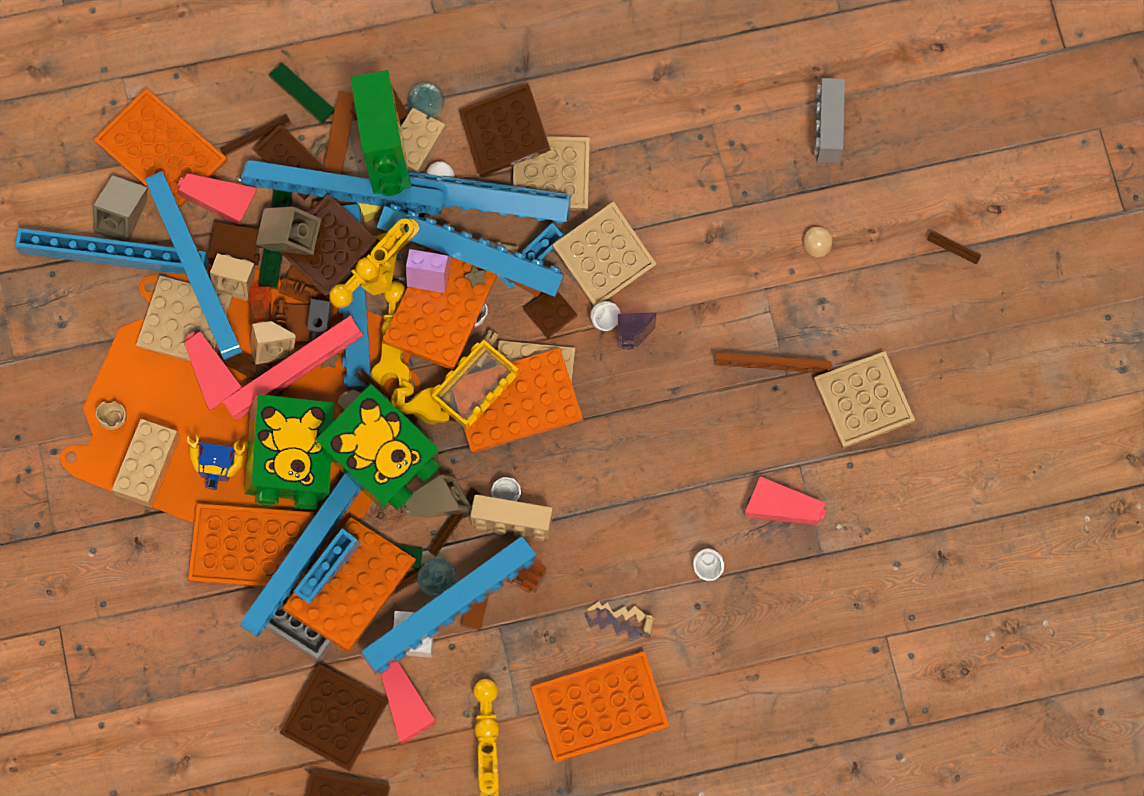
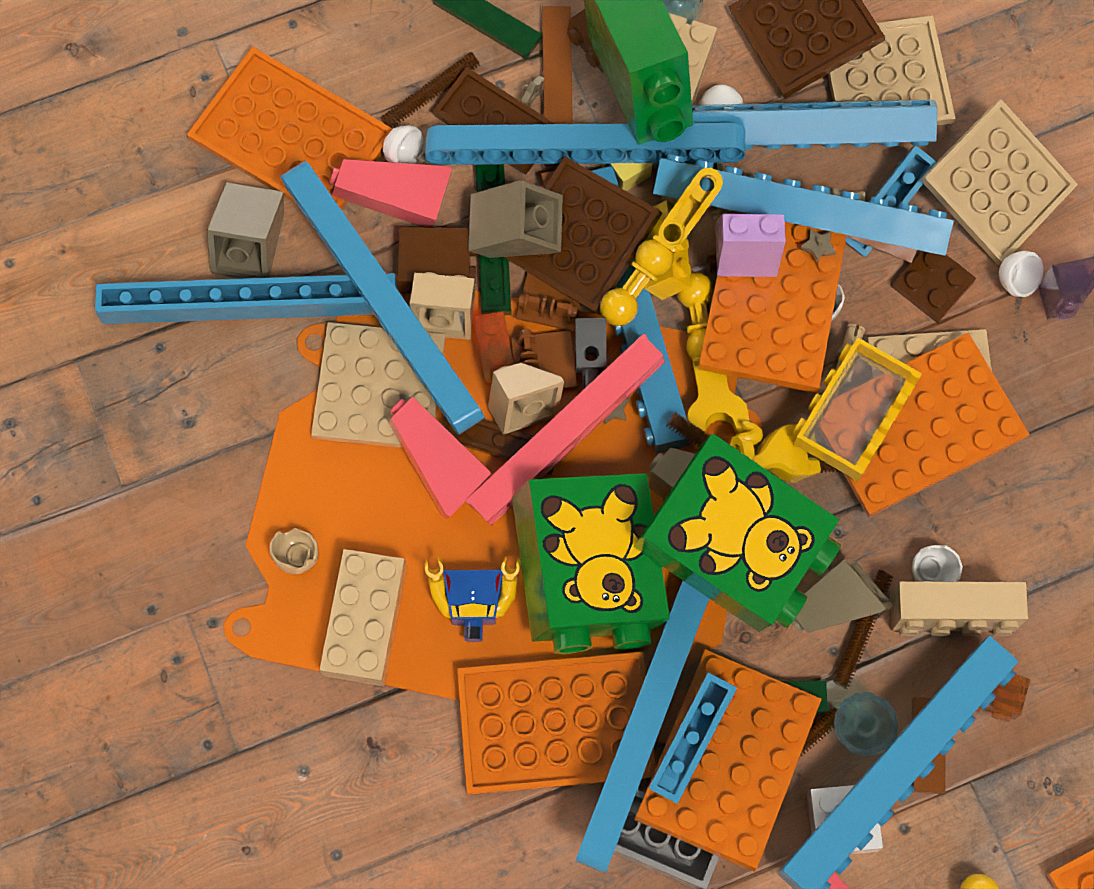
camera: 10 degrees left, 0 degrees up
(229, 169) = (403, 145): none -> white piece

